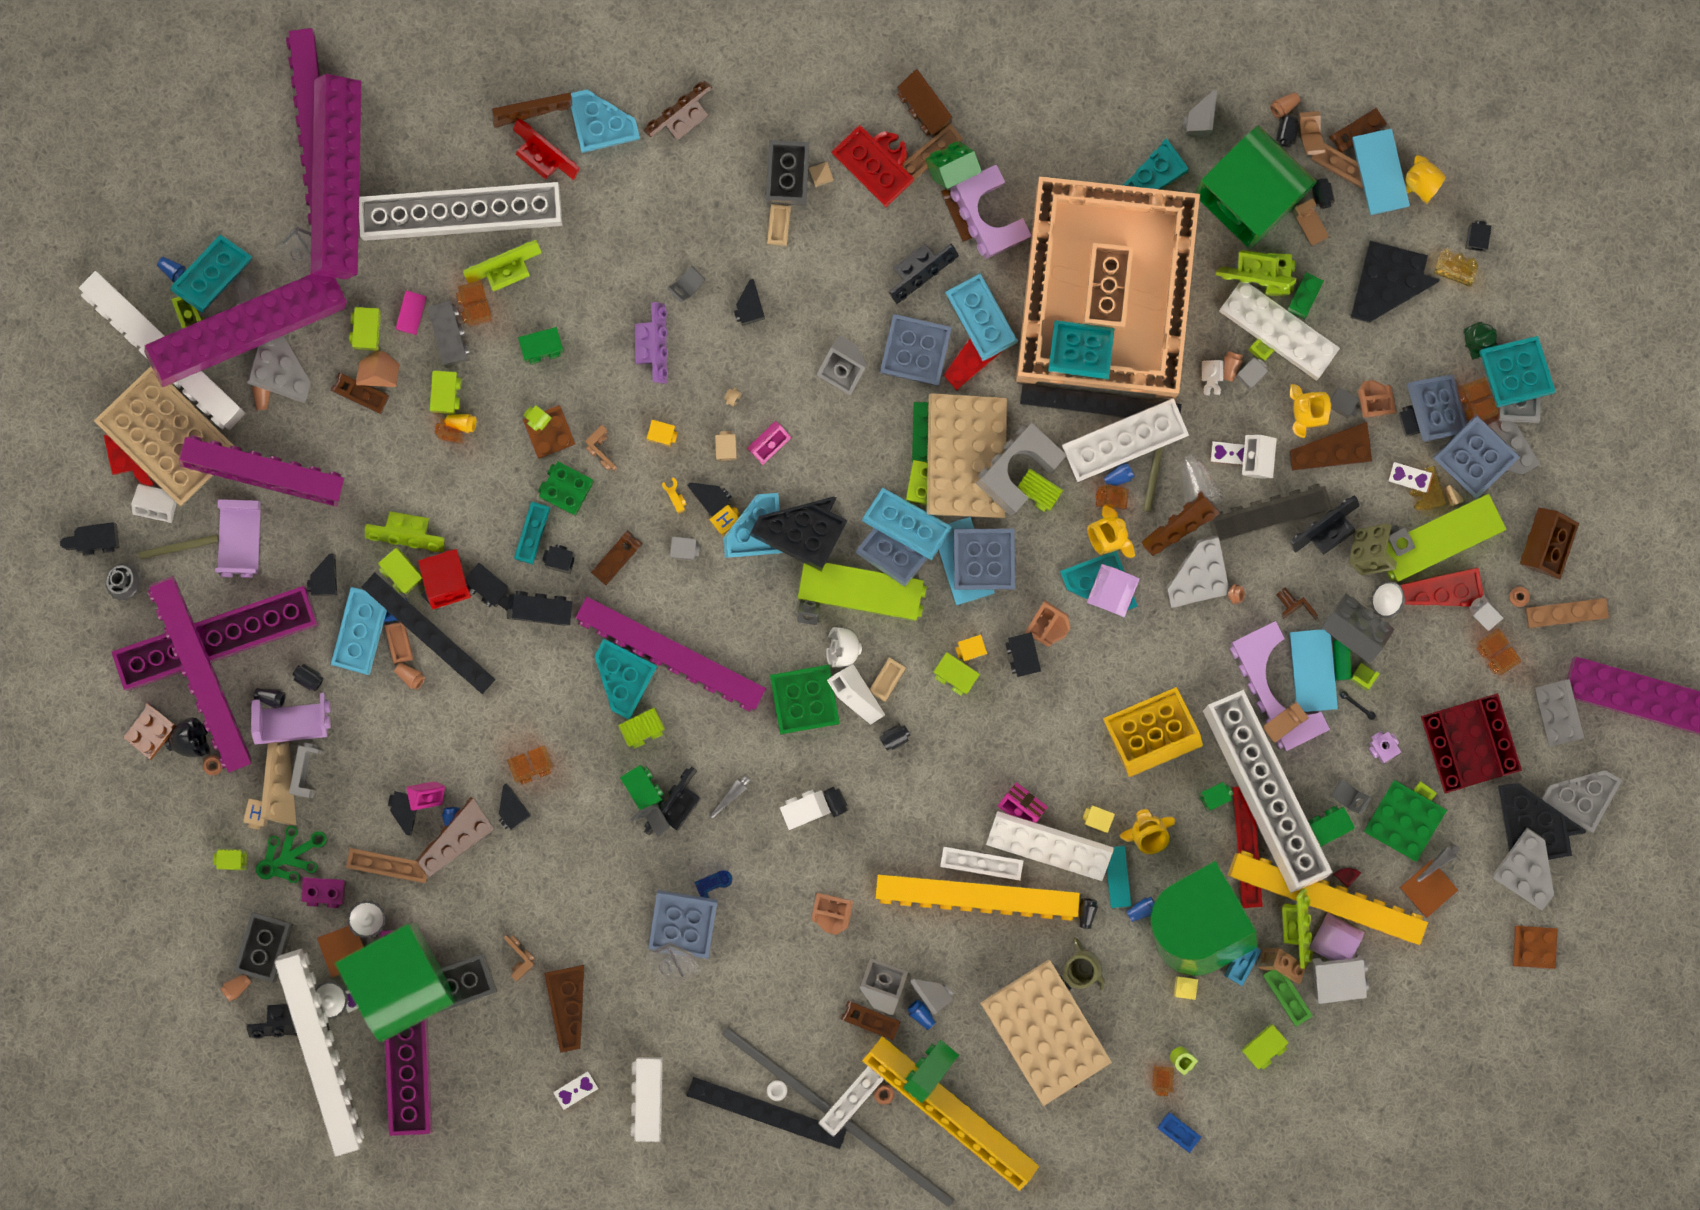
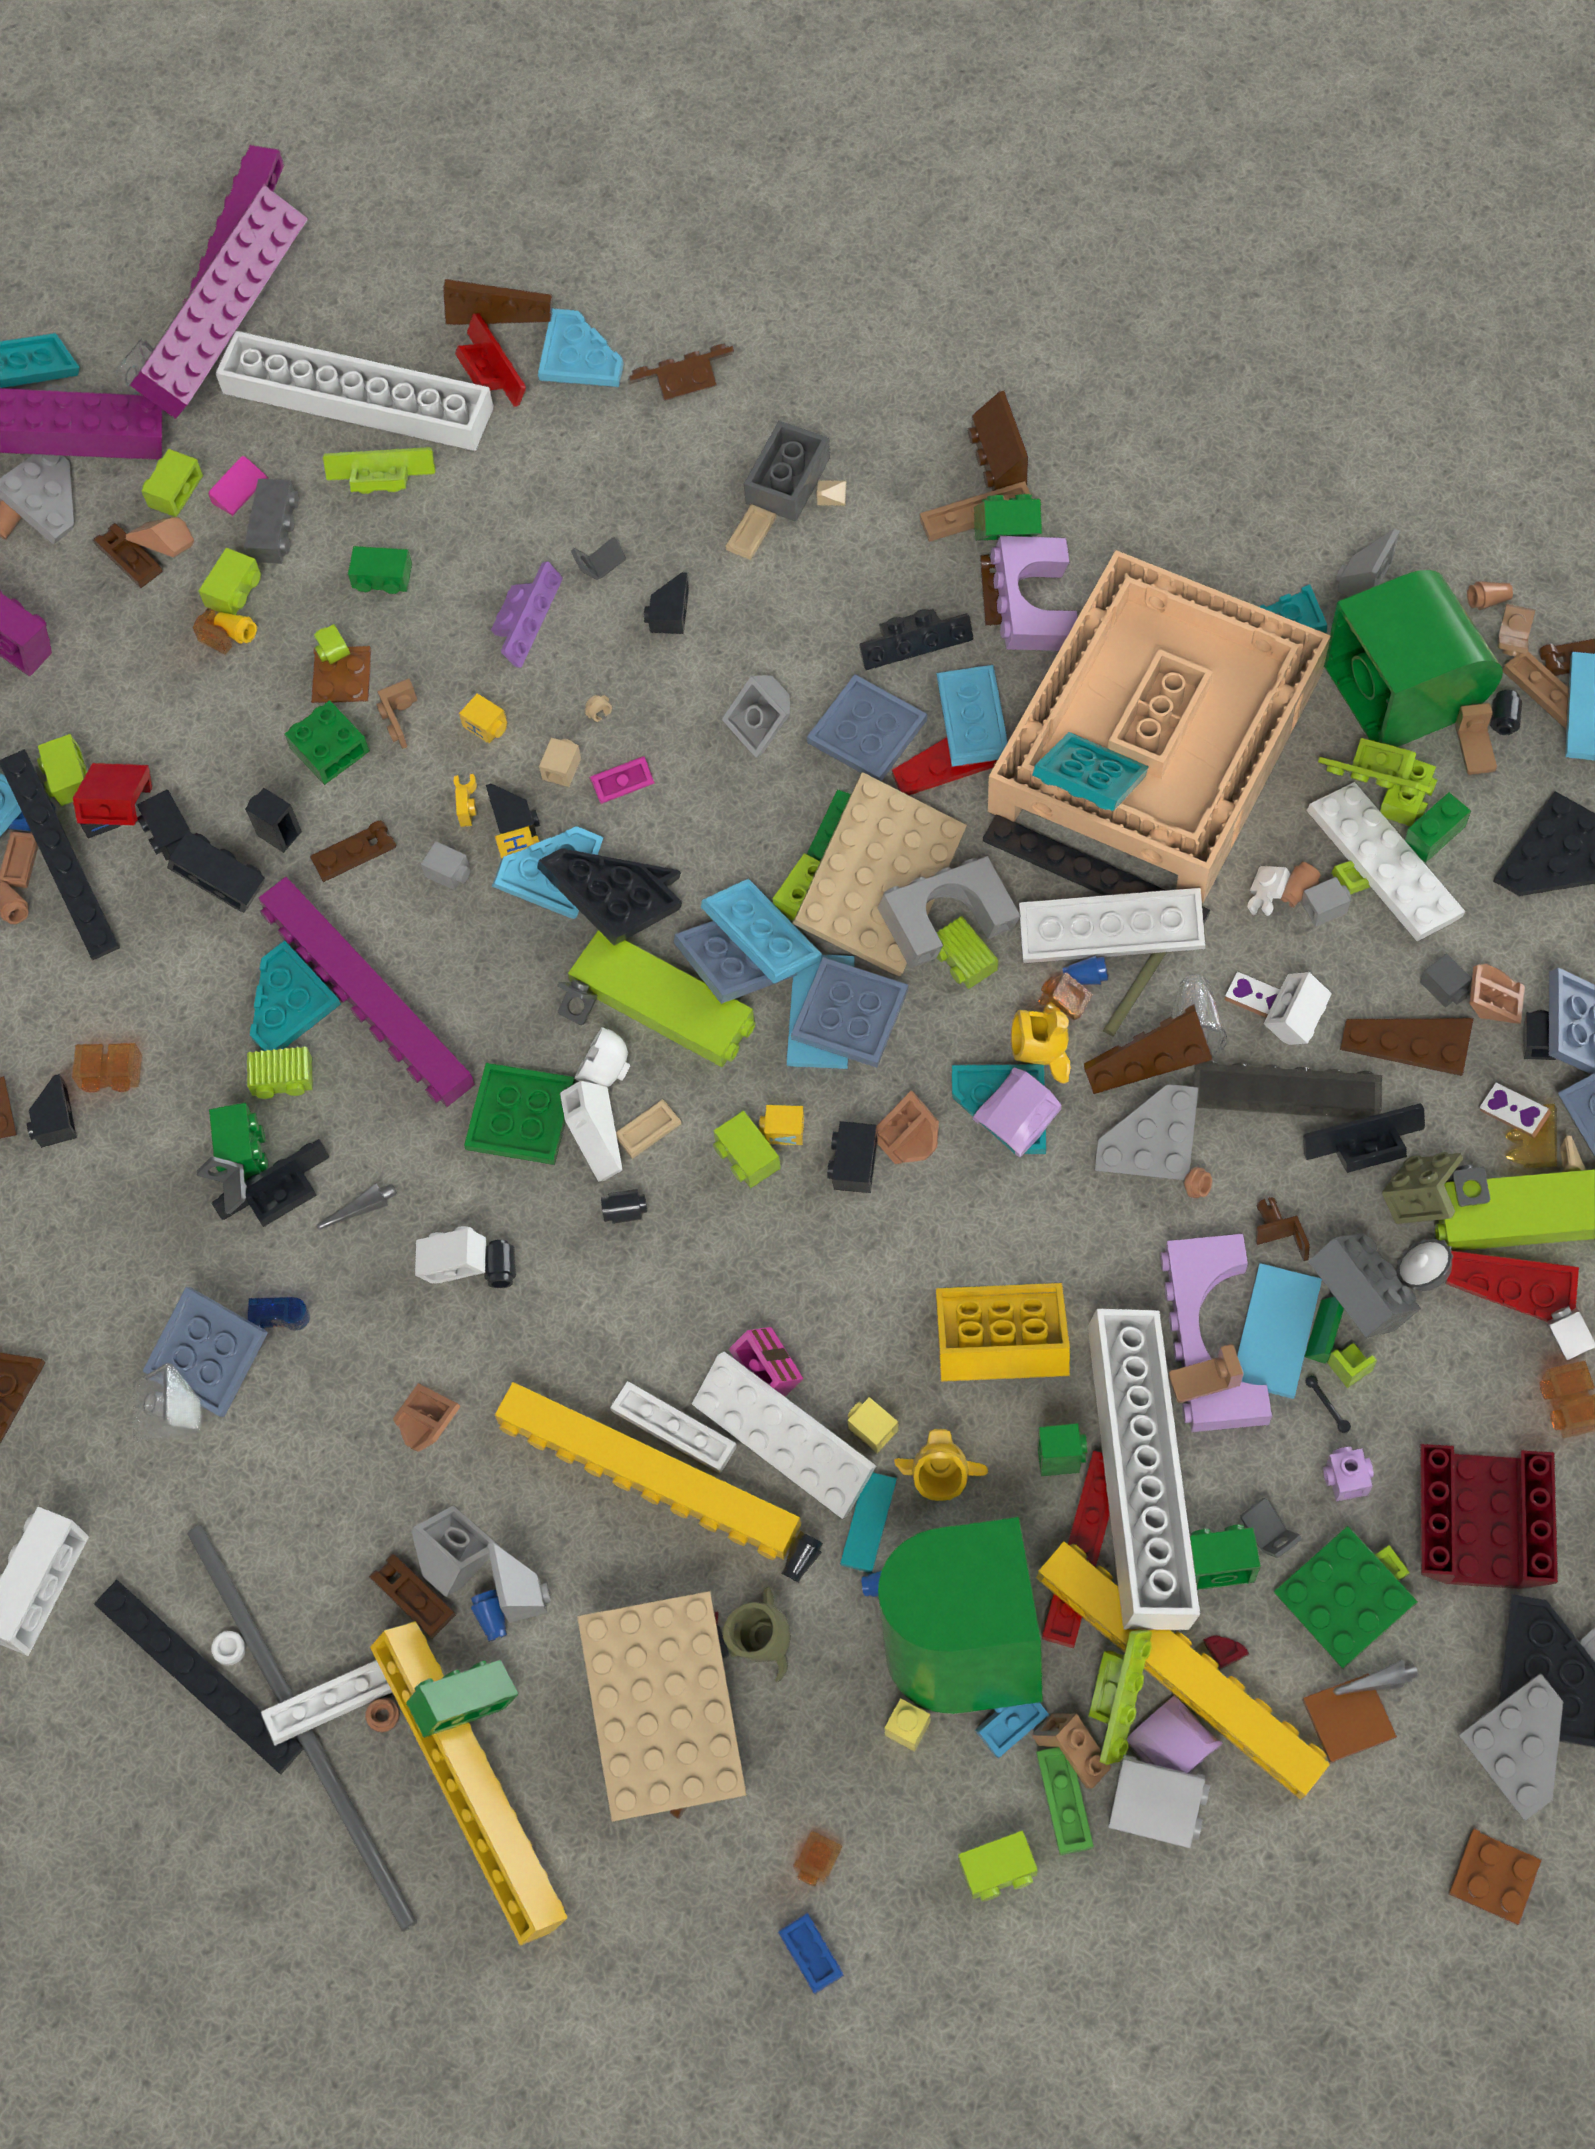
camera: 30 degrees right, 20 degrees down
(405, 531) = (96, 729): lime bracket -> none
(471, 294) = (320, 493): clear orange piece -> none
(532, 533) = (267, 775): teal tile -> none
(875, 163) = (907, 493): red plate -> none
(1183, 1060) = (860, 1837): lime plate -> none
(1287, 131) = (1486, 620): black brick -> none
(1309, 409) = (1393, 971): yellow piece -> none

